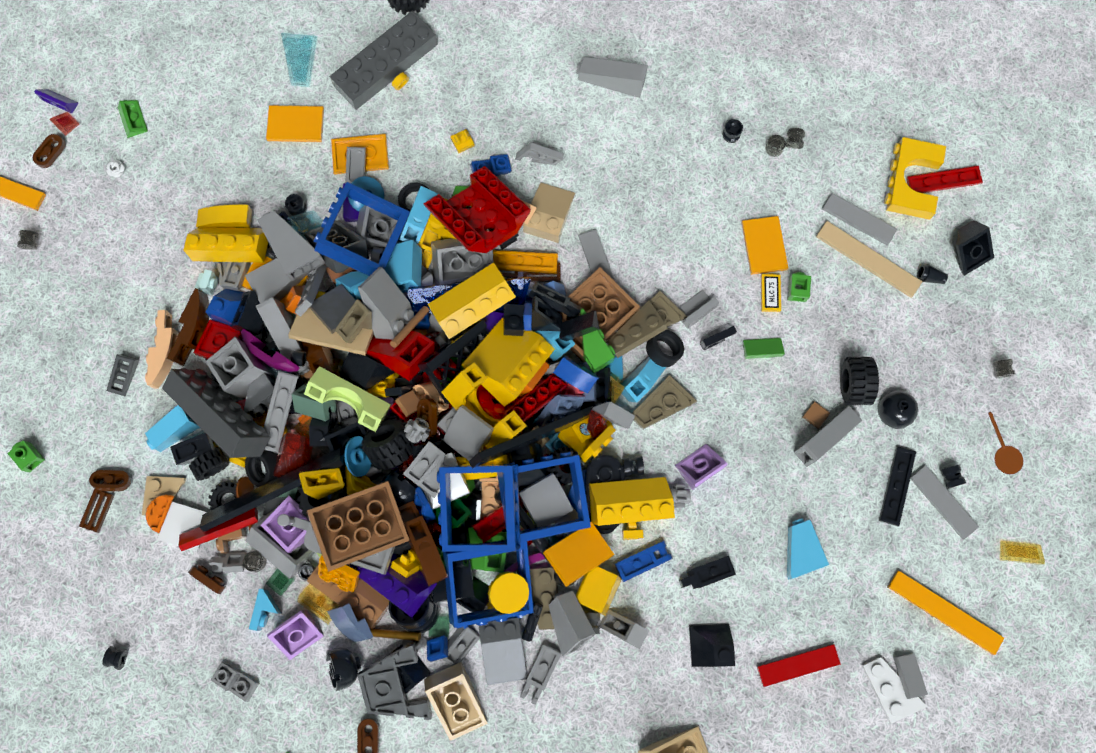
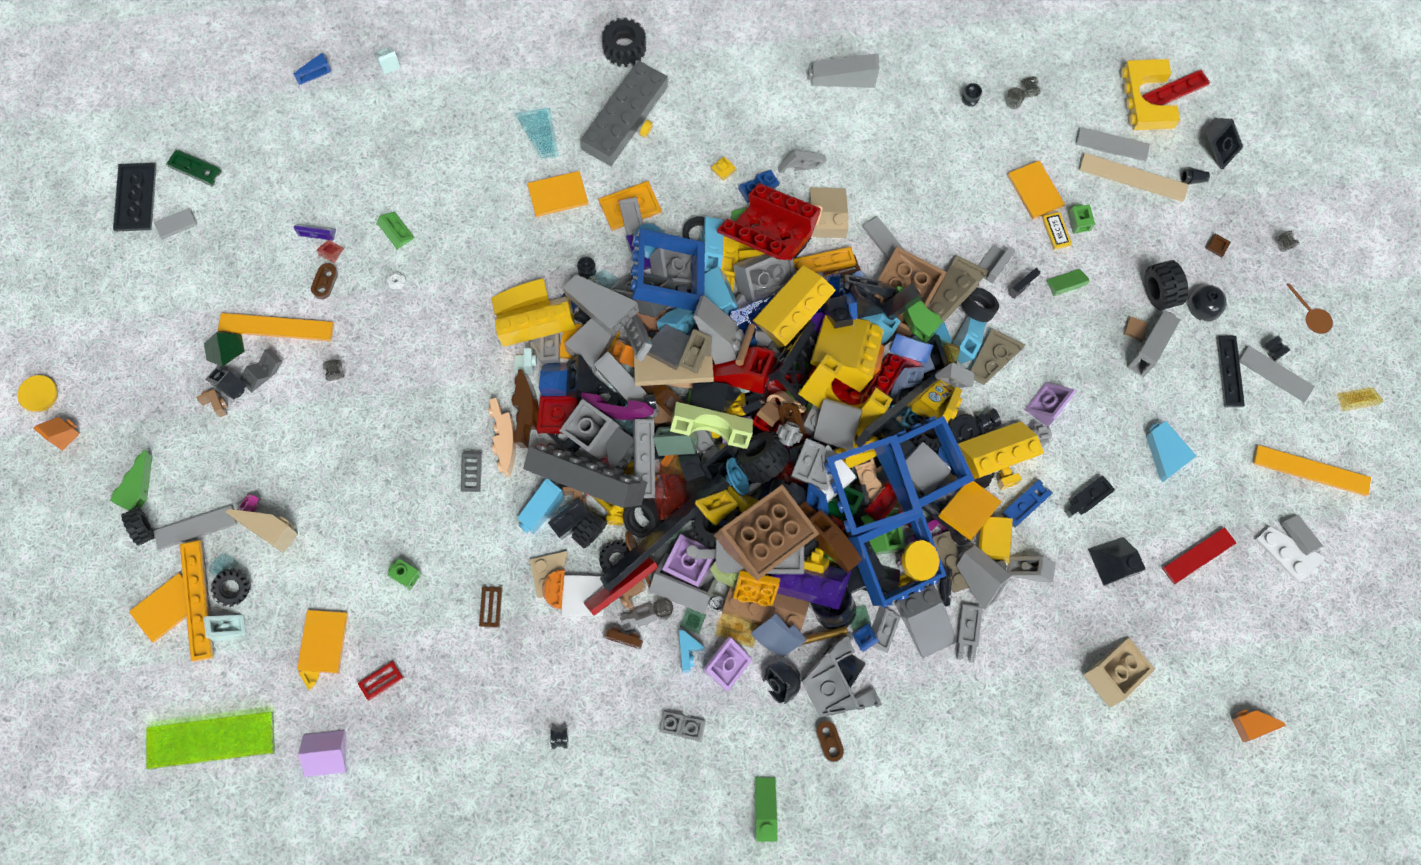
camera: 20 degrees left, 5 degrees down
(111, 480) = (495, 573): reddish brown plate -> none
(455, 701) = (899, 680): tan slope -> none
(596, 425) = (944, 388): clear red slope -> none
(931, 353) = (1218, 245): none -> reddish brown tile

